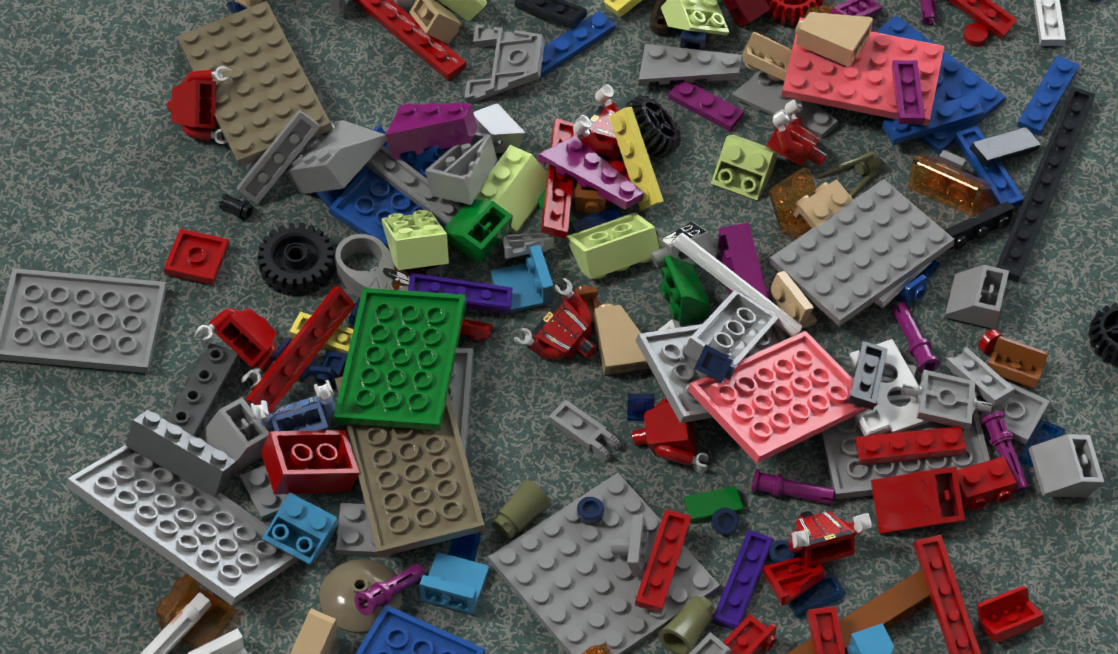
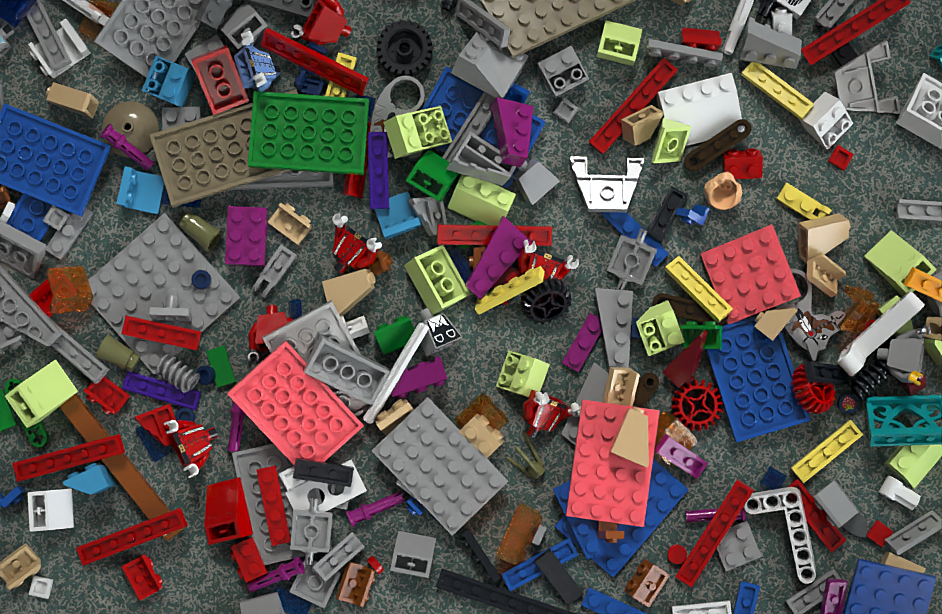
camera: 85 degrees right, 30 degrees up
(326, 33) = (619, 43): none -> yellowish green slope
(354, 91) = (562, 71): none -> light grey slope
(403, 96) = (565, 110): none -> light grey tile
(519, 404) = (290, 224): none -> tan bracket
(534, 453) = (246, 236): none -> magenta brick
(605, 42) = (632, 259): none -> light grey plate
(716, 364) = (300, 359): dark blue bracket -> none
(722, 546) = (176, 374): none -> light grey piece
(908, 92) = (583, 497): magenta plate -> none
(949, 88) = (609, 531): none -> dark orange bracket
(1010, 65) = (646, 582): none -> dark orange bracket

